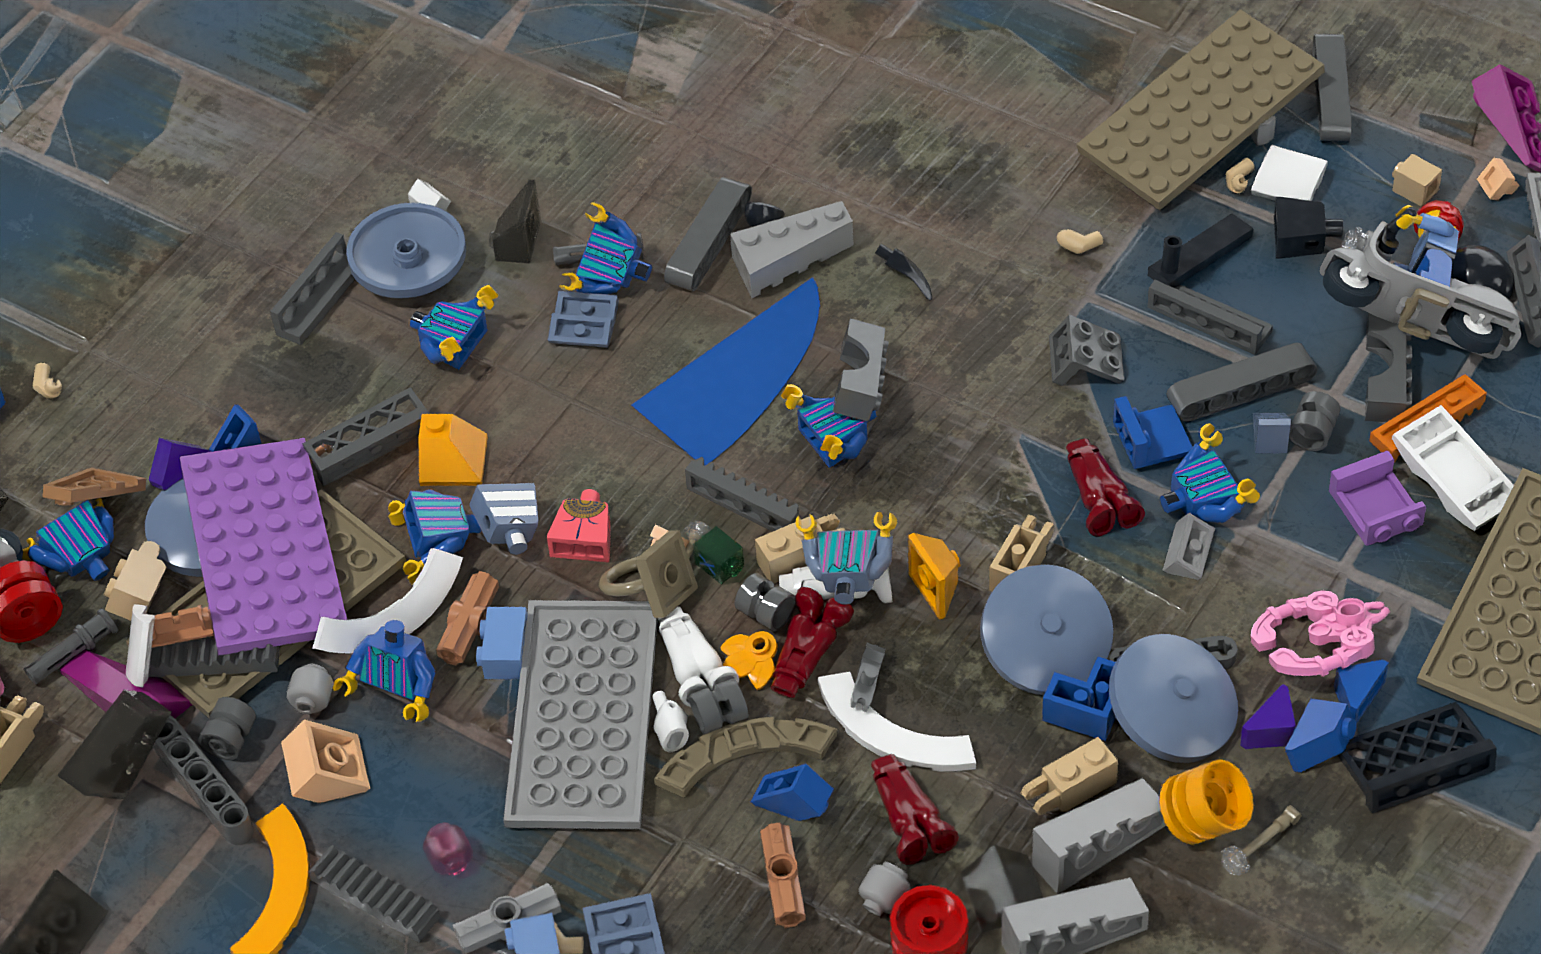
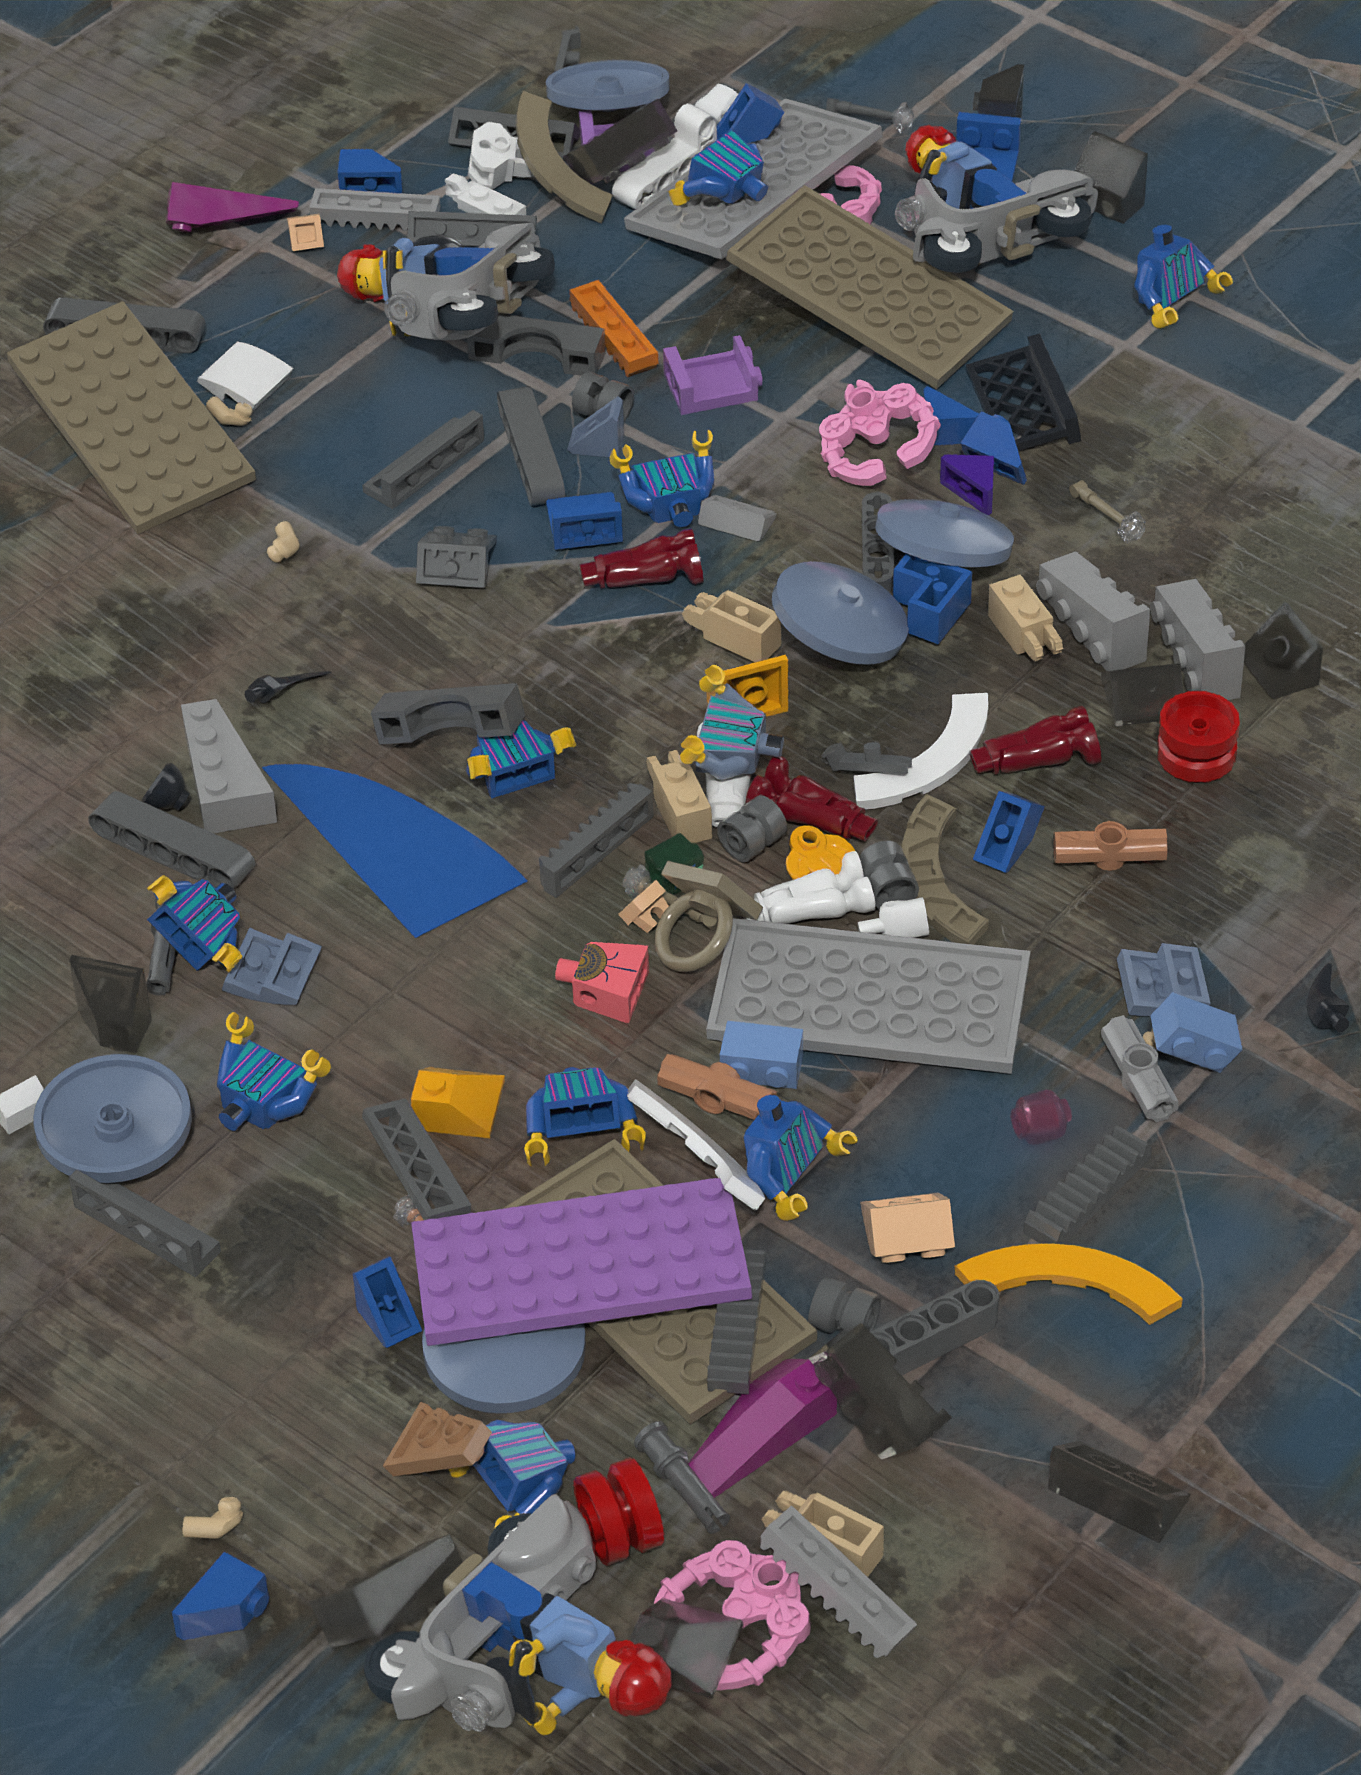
camera: 85 degrees left, 5 degrees down
(136, 580) = (606, 1395): tan hinge -> none
(139, 645) = (732, 1366): white slope -> none
(166, 463) = (407, 1368): dark purple slope -> none
(186, 626) = (707, 1328): nougat hinge -> none
(310, 689) = (799, 1231): light grey head -> none
(506, 514) = (580, 1036): sand blue torso -> none
(883, 888) = (1137, 770): light grey head -> none
(1183, 261) = (338, 455): black piece -> none
(1206, 802) = (1081, 519): light orange wheel -> none
(1302, 227) = (324, 375): black torso -> none
(1416, 179) = (286, 285): tan brick -> none
(1454, 467) = (690, 315): white slope -> none

